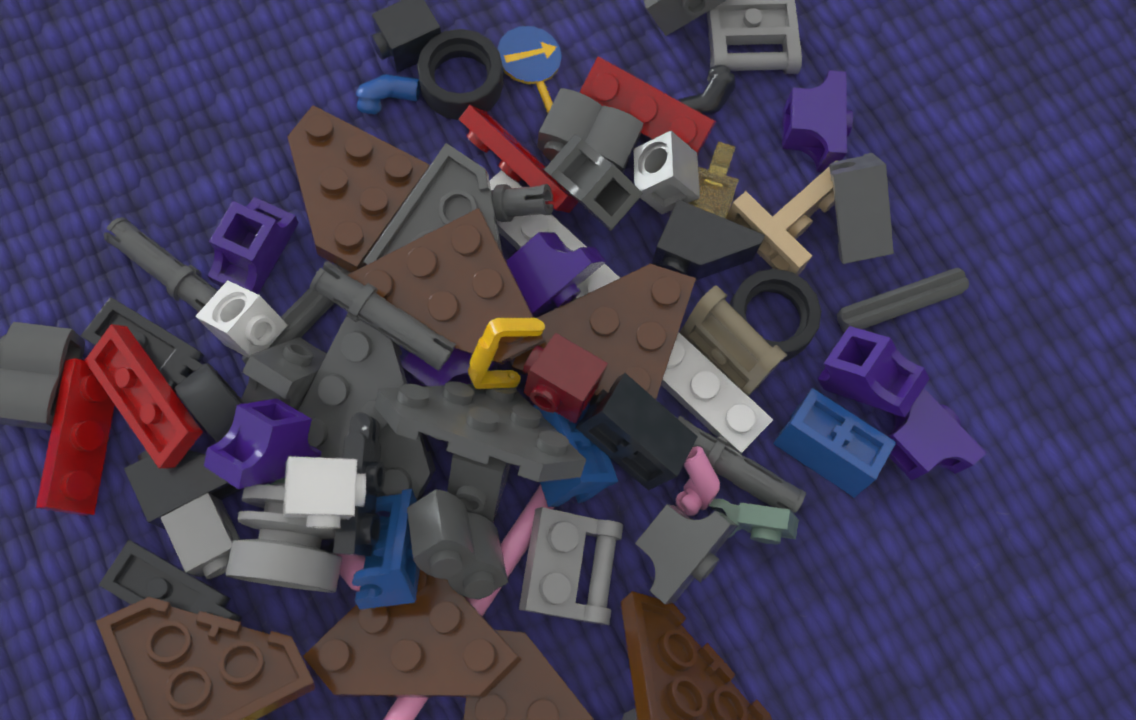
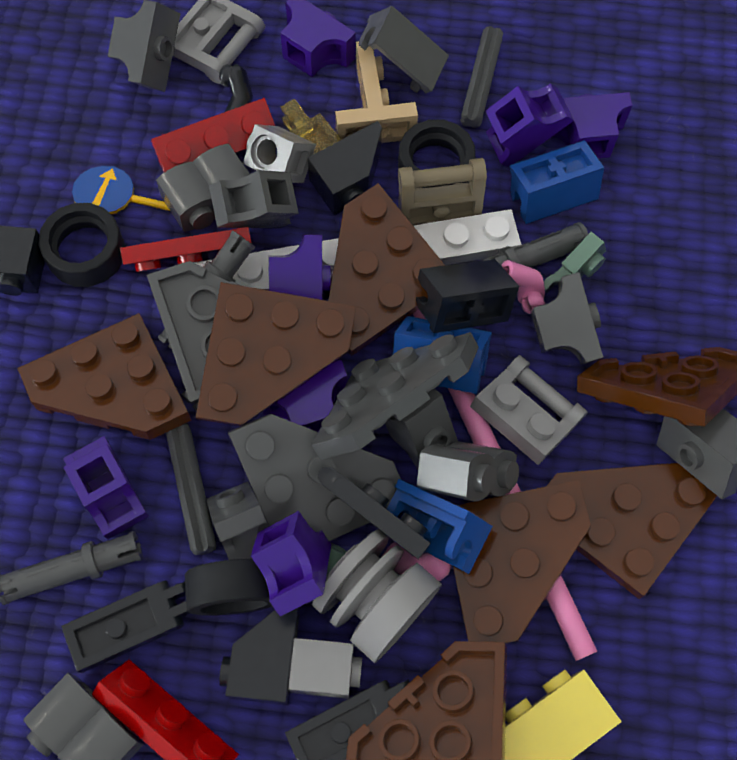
camera: 50 degrees left, 5 degrees down
(143, 396) = (176, 640): red plate -> none
(241, 319) = (165, 528): white brick -> none
(322, 490) = (371, 527): white brick -> none
(384, 87) = (46, 306): blue arm -> none
(394, 323) = (238, 411): dark grey pin -> none
(488, 346) = (345, 367): yellow piece -> none
(563, 377) = (395, 310): dark red brick -> none

